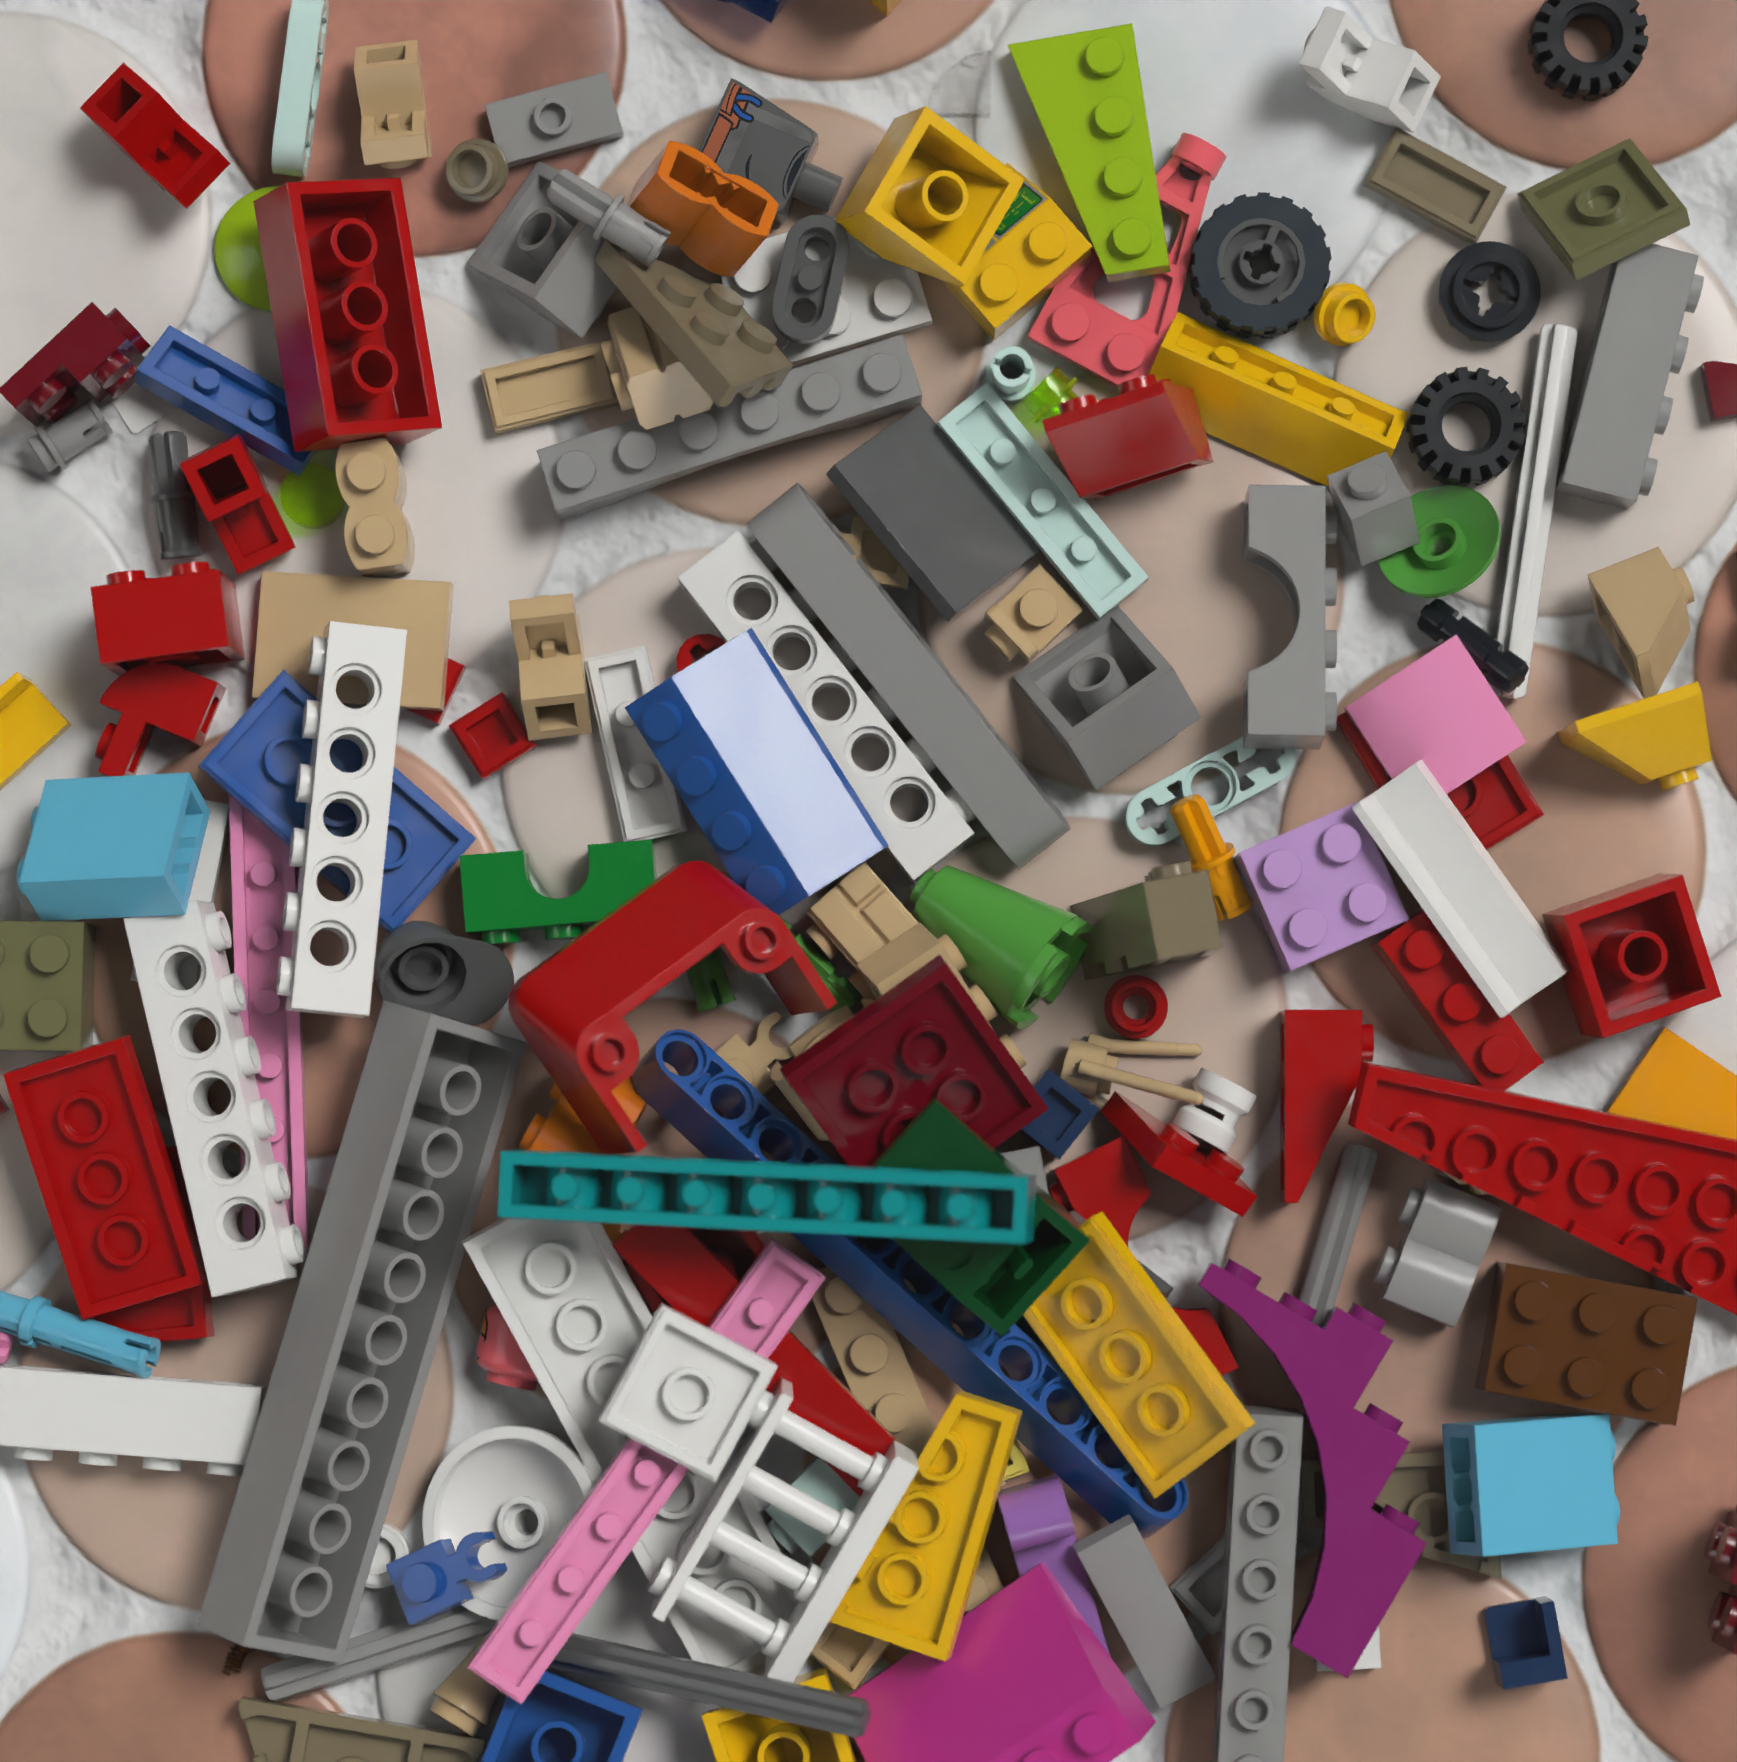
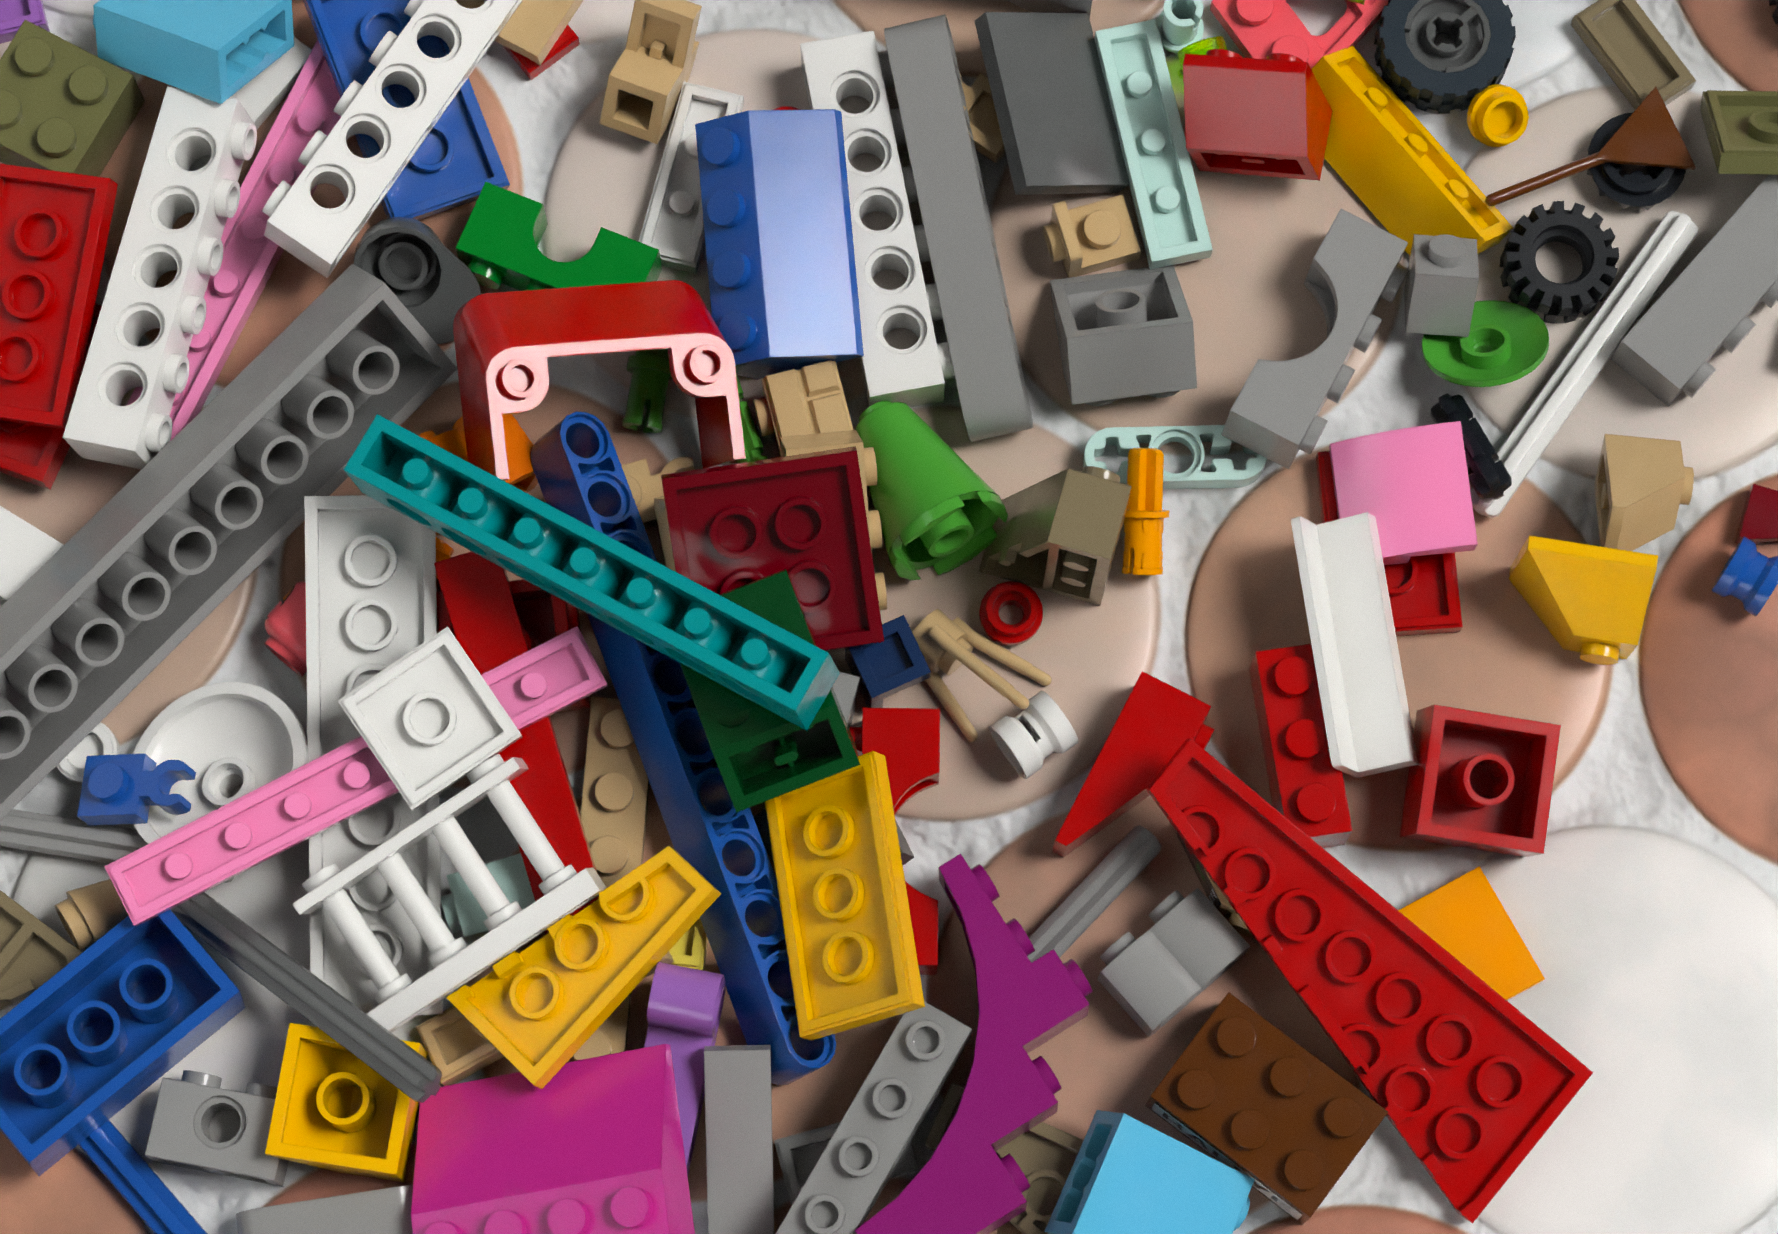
camera: 25 degrees right, 10 degrees down
(492, 736) = (570, 109): red tile -> none
(1179, 1155) = (978, 745): red wing -> none
(1320, 888) = (1227, 586): lavender brick -> none
(1488, 272) = (1644, 140): none -> reddish brown piece

